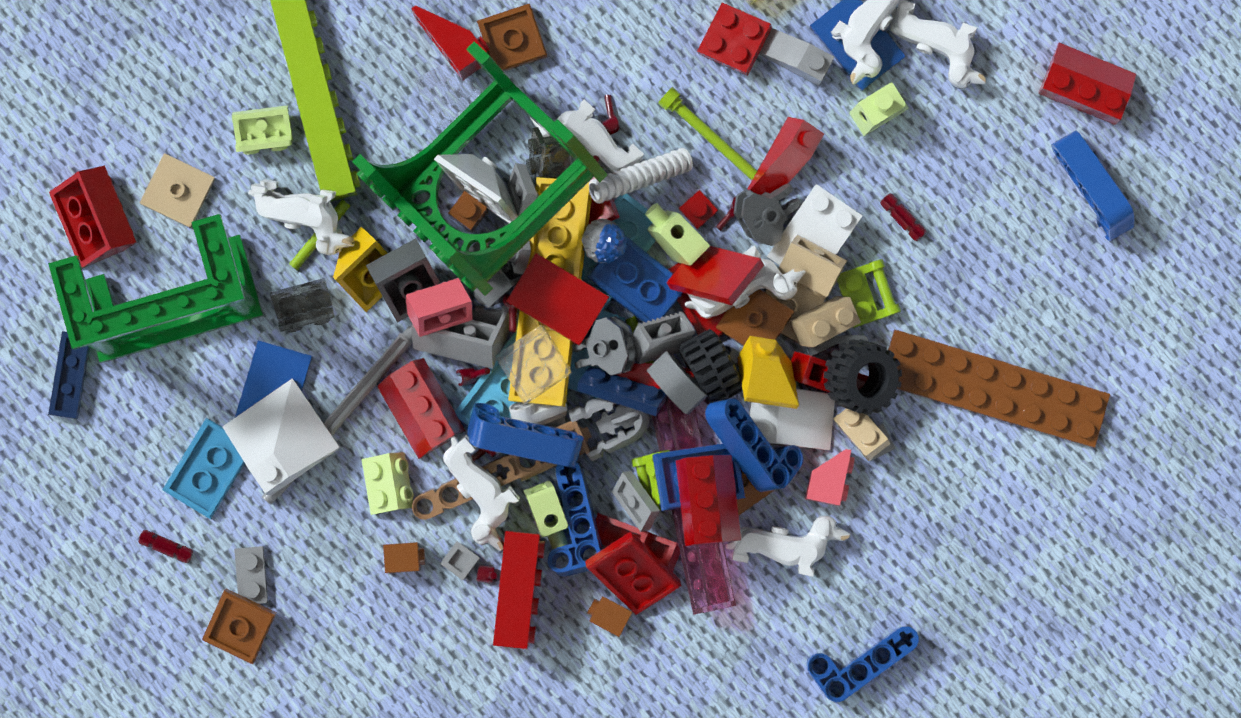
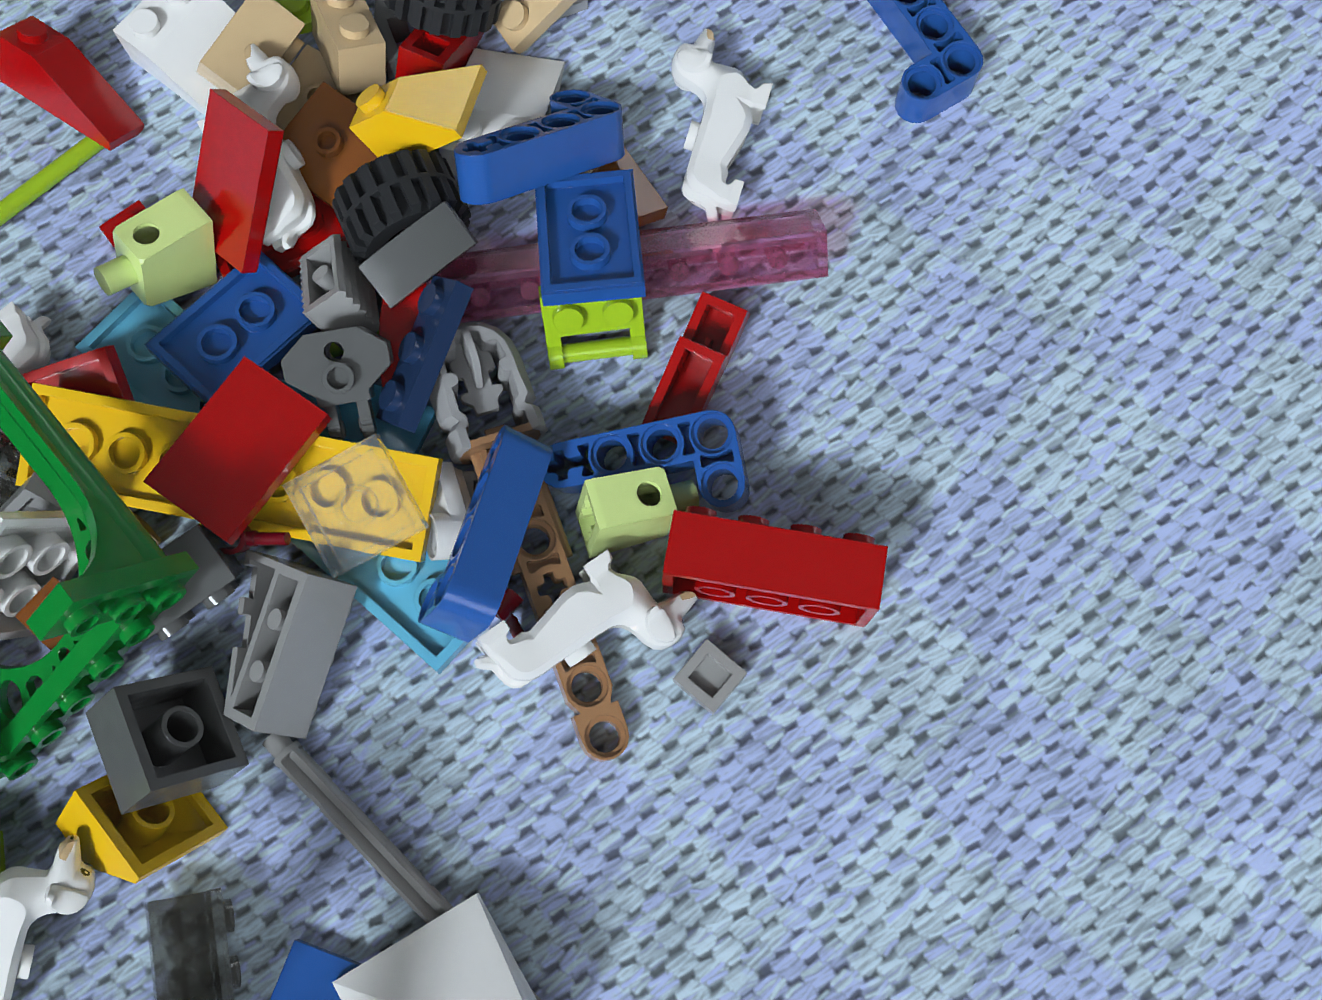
camera: 80 degrees left, 10 degrees down
(310, 245) = (78, 923): lime bar -> none
(387, 482) = (554, 805): yellowish green bracket -> none
(403, 557) = (698, 782): dark orange brick -> none
(420, 407) = (416, 733): red slope -> none
(439, 307) = (222, 674): coral brick -> none
(470, 375) = (370, 636): dark red hand -> none
(486, 574) = (737, 629): dark red hand -> none
(521, 259) = (158, 519): light grey plate -> none
(604, 241) = (146, 364): piece -> none
(609, 615) = (823, 418): dark orange brick -> none
(633, 573) = (751, 361): red tile -> none
(636, 501) = (624, 354): light grey plate -> none
(641, 175) = (44, 307): white piece -> none
(708, 499) = (632, 218): red slope -> none
(730, 214) = (144, 176): dark red hand -> none
(762, 215) = (150, 119): dark grey hinge -> none
(828, 480) = (612, 56): coral slope -> none

